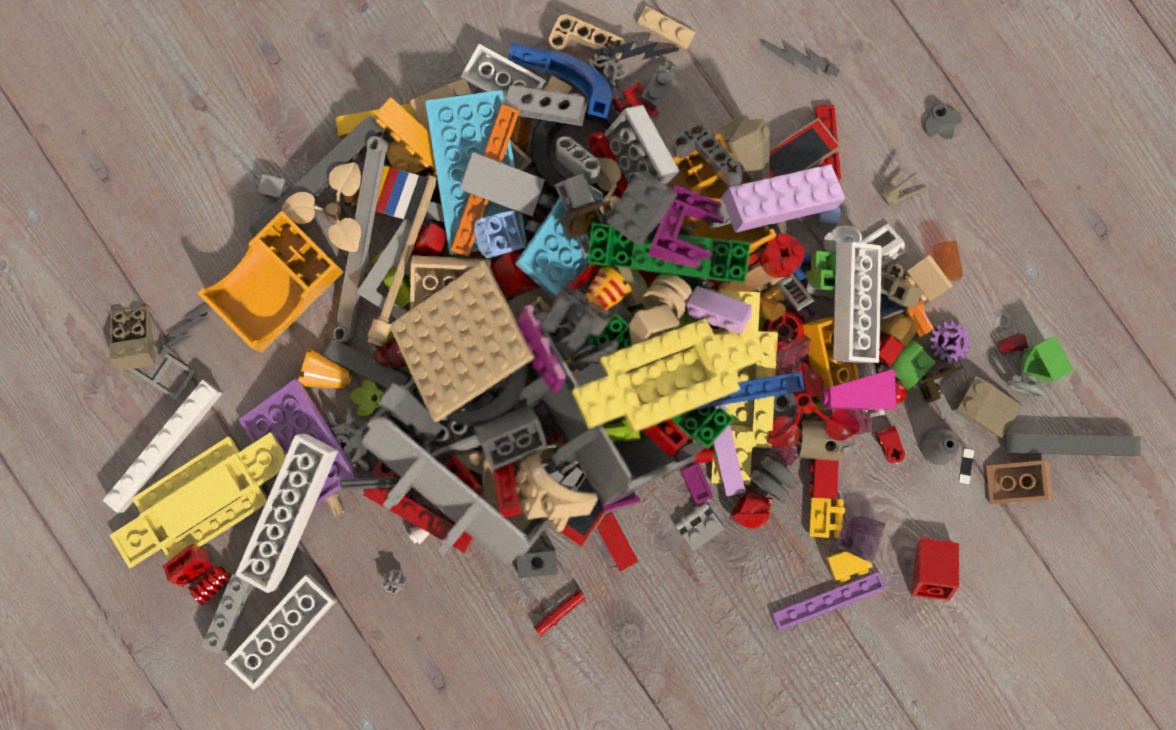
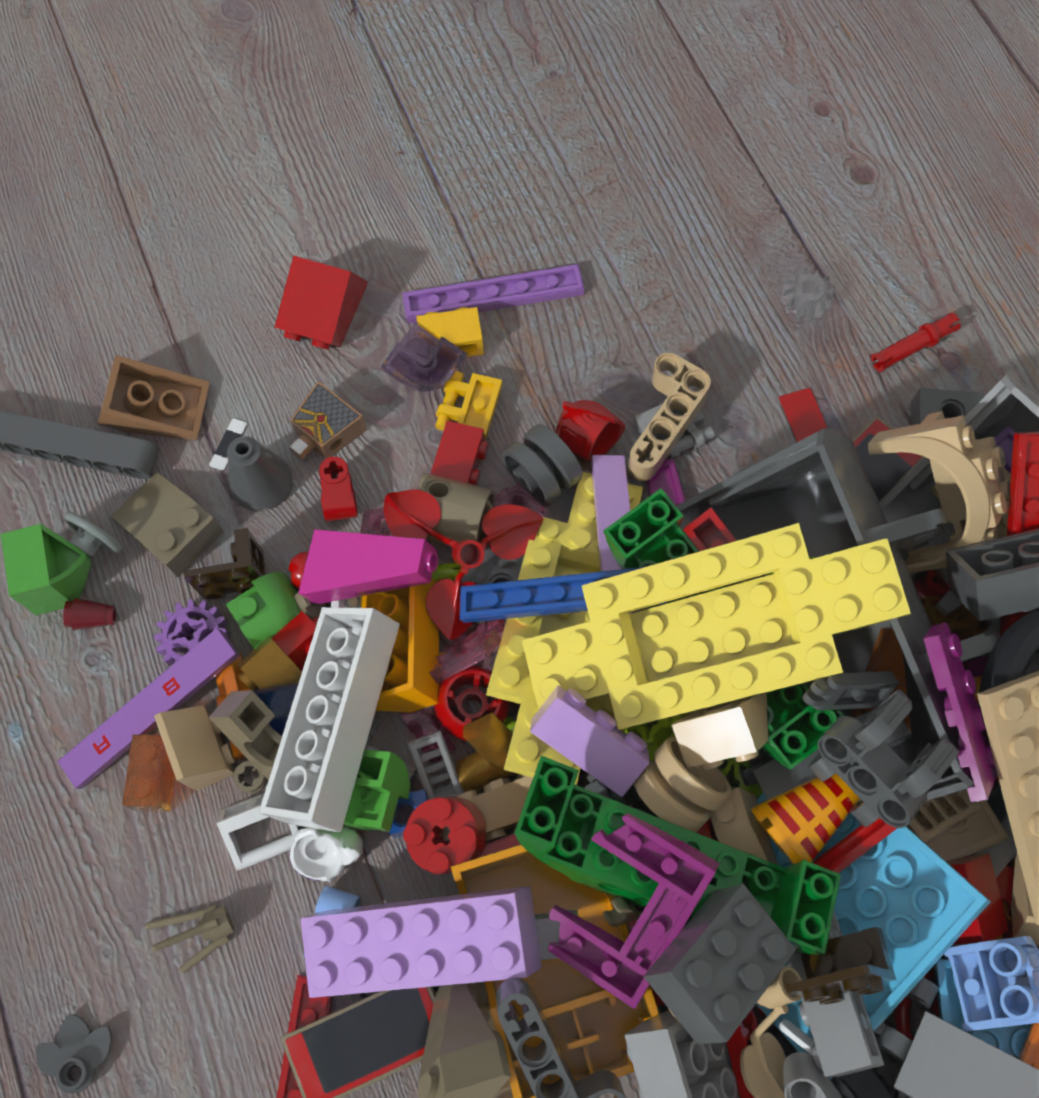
camera: 170 degrees left, 15 degrees down
(707, 522) = (665, 422): none -> tan beam
(911, 486) = (324, 424): none -> torso
(960, 296) = (137, 715): none -> medium lavender tile

